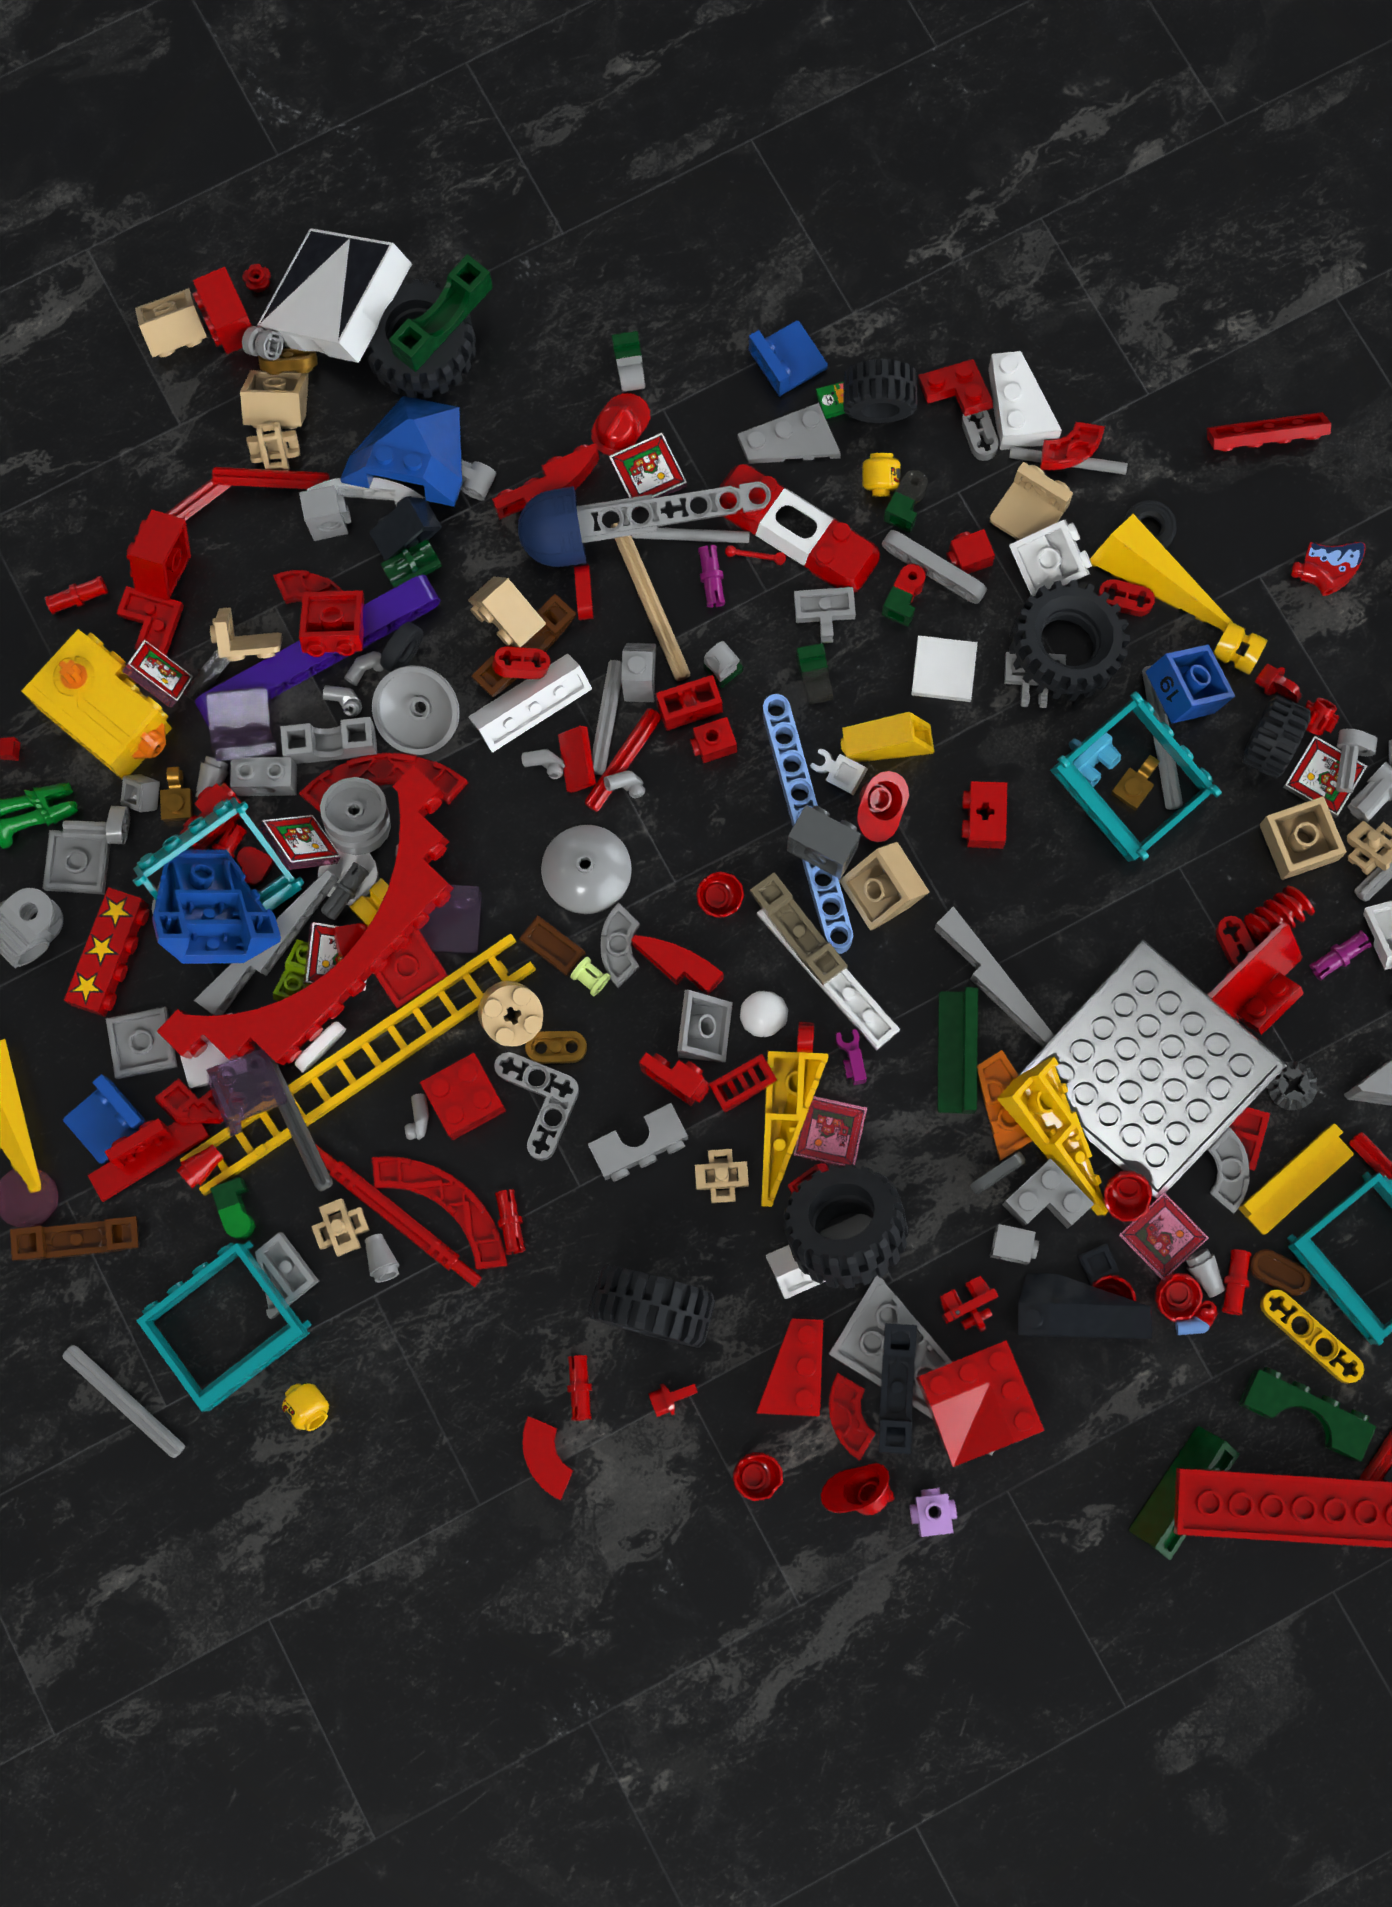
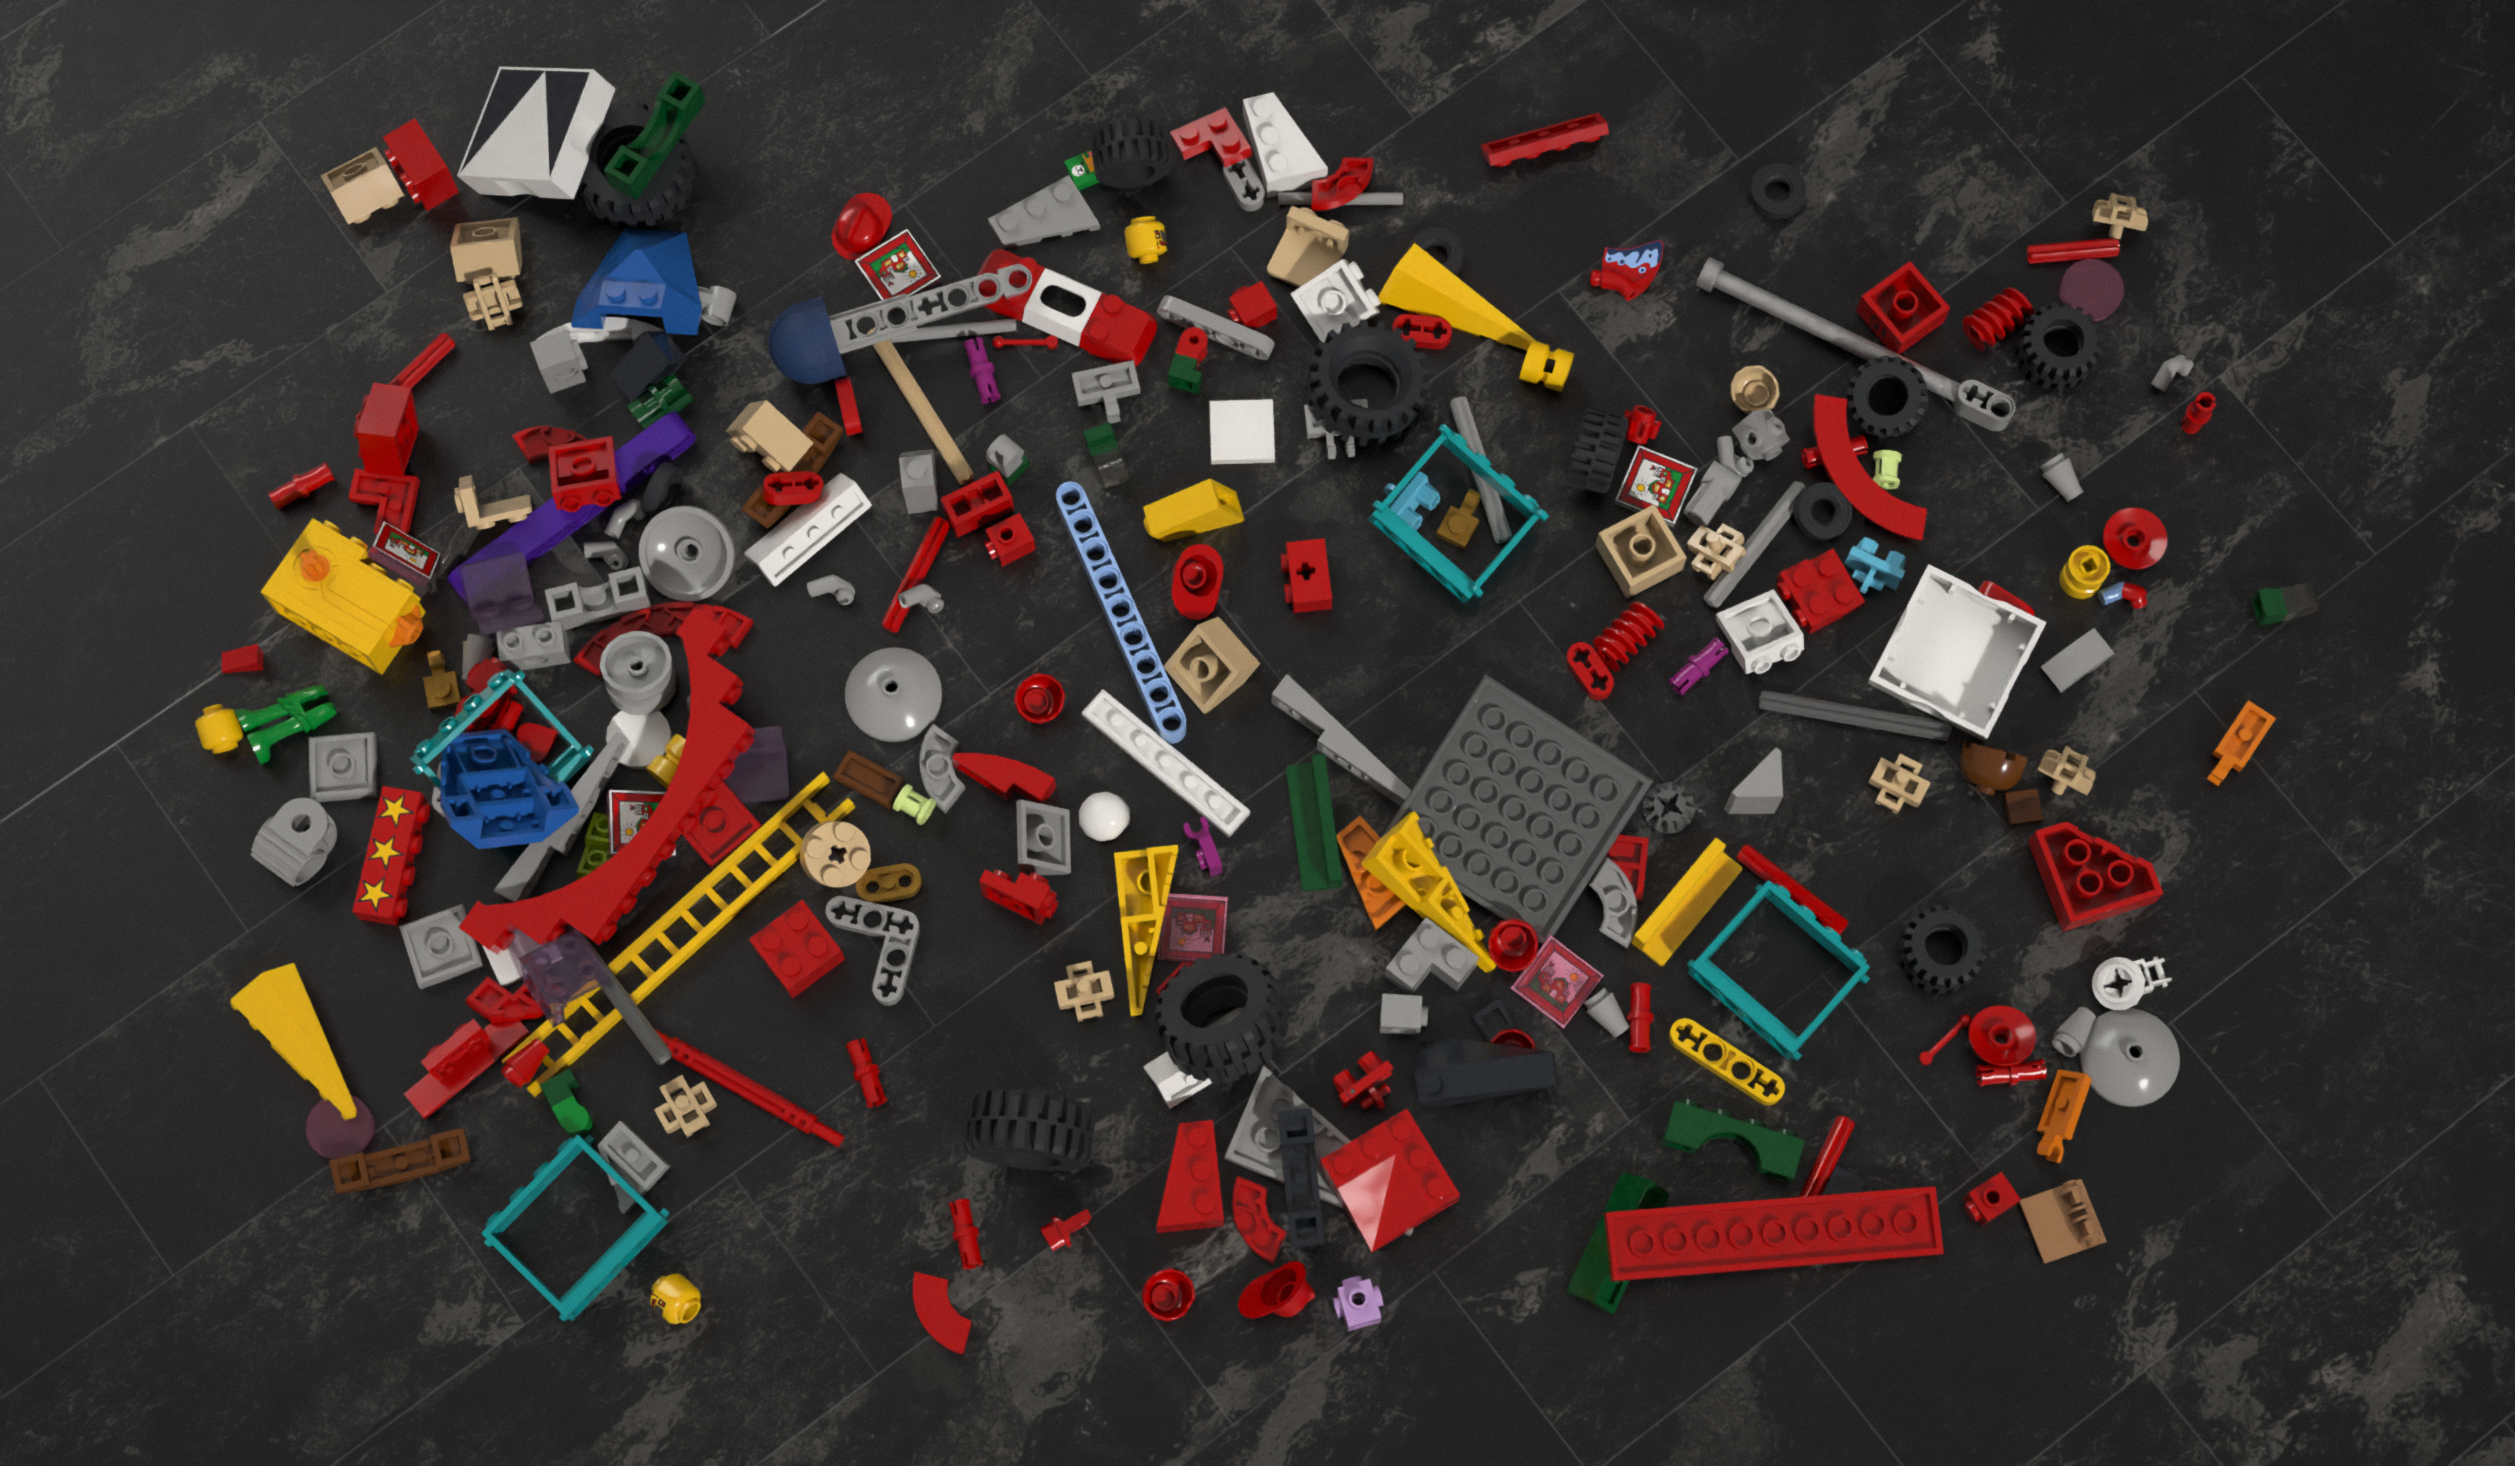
camera: 15 degrees left, 5 degrees down
(103, 1118) = (412, 1031): blue bracket -> none
(113, 830) = (379, 726): light grey piece -> none
(123, 1401) = (477, 1325): light grey axle -> none
(140, 793) = (401, 684): light grey slope -> none
(259, 284) = (451, 133): red plate -> none
(262, 343) = (466, 193): light grey wheel -> none
(267, 478) = (490, 334): red axle -> none
(290, 361) = (488, 208): pearl gold plate -> none
(299, 842) = (583, 708): tile -> none
(319, 1046) = (635, 920): white tile -> none
(344, 891) = (638, 753): dark grey axle -> none
(347, 937) = (648, 800): red tile -> none
(381, 1260) = (734, 1134): light grey cone -> none
(421, 1117) = (754, 977): light grey arm -> none
(452, 1196) = (798, 1055): red tile -> none
(558, 474) = (801, 286): red slope -> none
(577, 759) = (867, 580): red tile -> none
(607, 716) = (892, 533): light grey axle -> none
(628, 360) = (860, 158): leg -> none
(664, 1134) = (971, 988): light grey arch -> none
(721, 1096) = (1085, 881): red slope -> none
(787, 357) = (1028, 132): blue bracket -> none
(797, 929) = (1126, 722): dark tan slope -> none
(805, 1037) = (1151, 832): red beam -> none
(823, 840) = (1139, 624): dark grey brick -> none
(842, 772) = (1150, 554): white plate -> none
(908, 493) = (1176, 257): leg -> none
(998, 1173) = (1374, 943): dark grey tile -> none
(1178, 1296) = (1581, 1041): red hair -> none
(1190, 683) = (1500, 409): blue brick -> none
(1200, 1321) = (1609, 1063): arm -> none
(1258, 987) = (1616, 707): red bracket -> none
(1274, 681) = (1589, 395): red piece -> none
(1279, 1272) = (1684, 1001): reddish brown tile -> none
(1353, 744) = (1679, 448): light grey piece -> none

